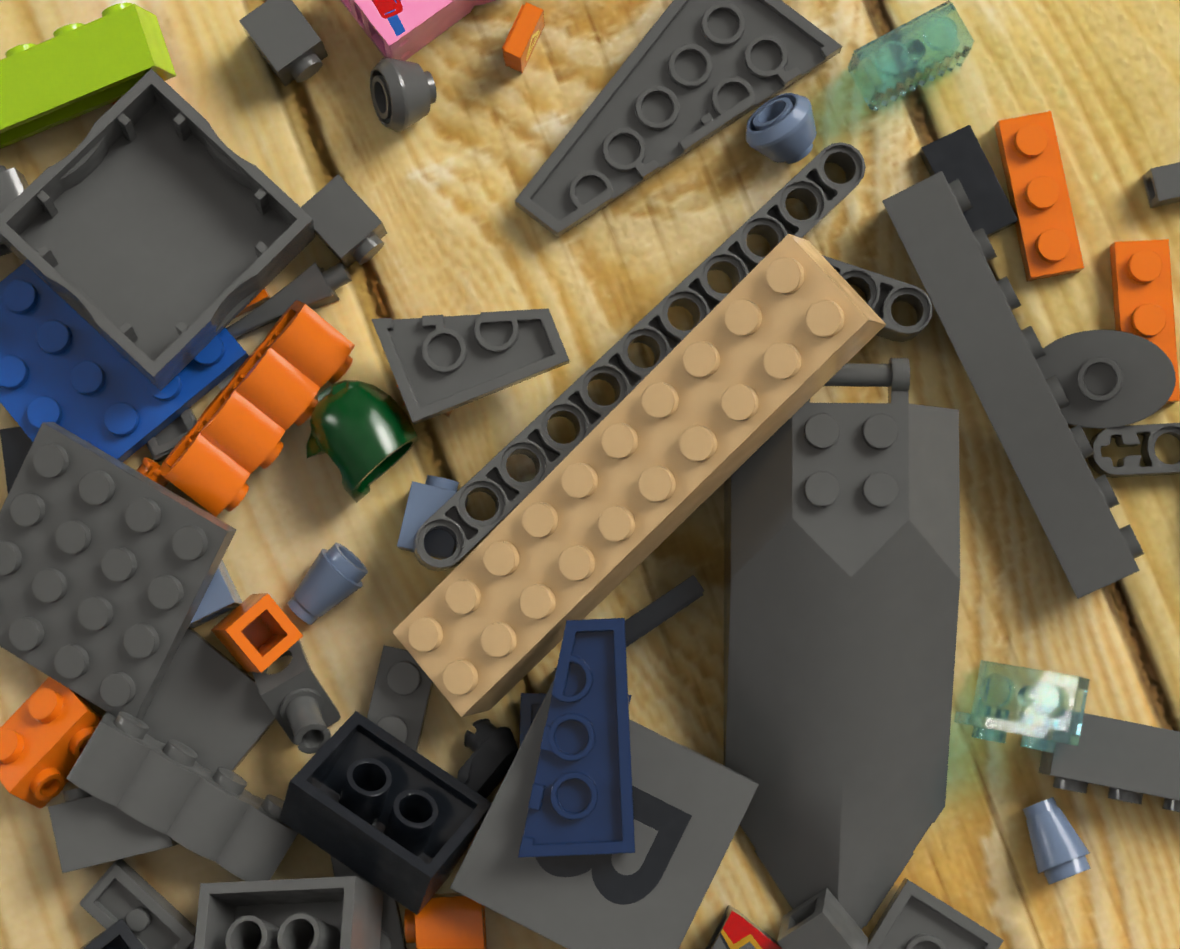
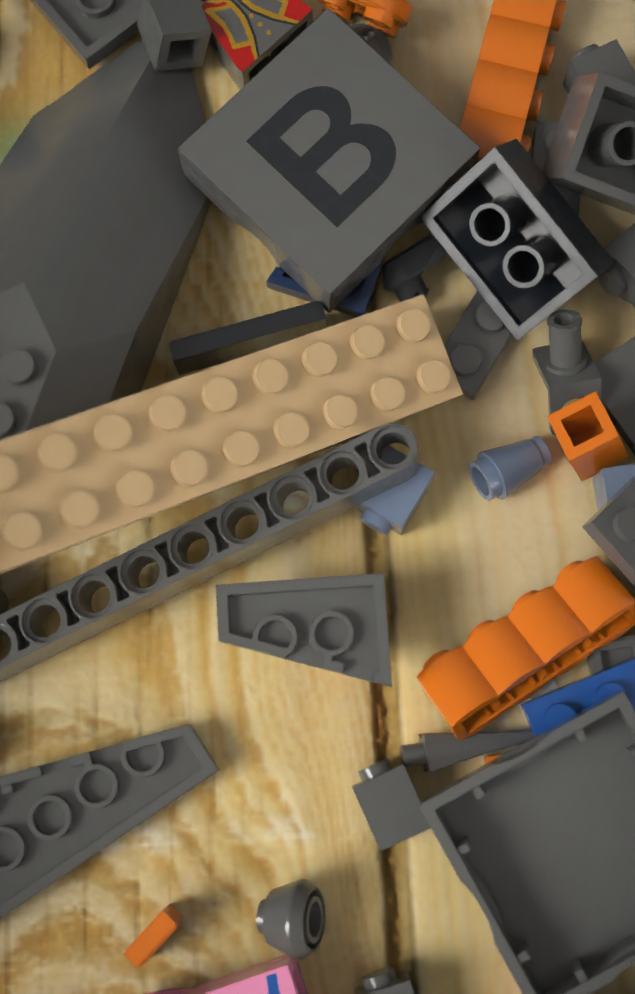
camera: 155 degrees left, 5 degrees down
(360, 432) = (438, 590): dark green piece -> none
(584, 764) = (323, 208): dark blue wing -> none

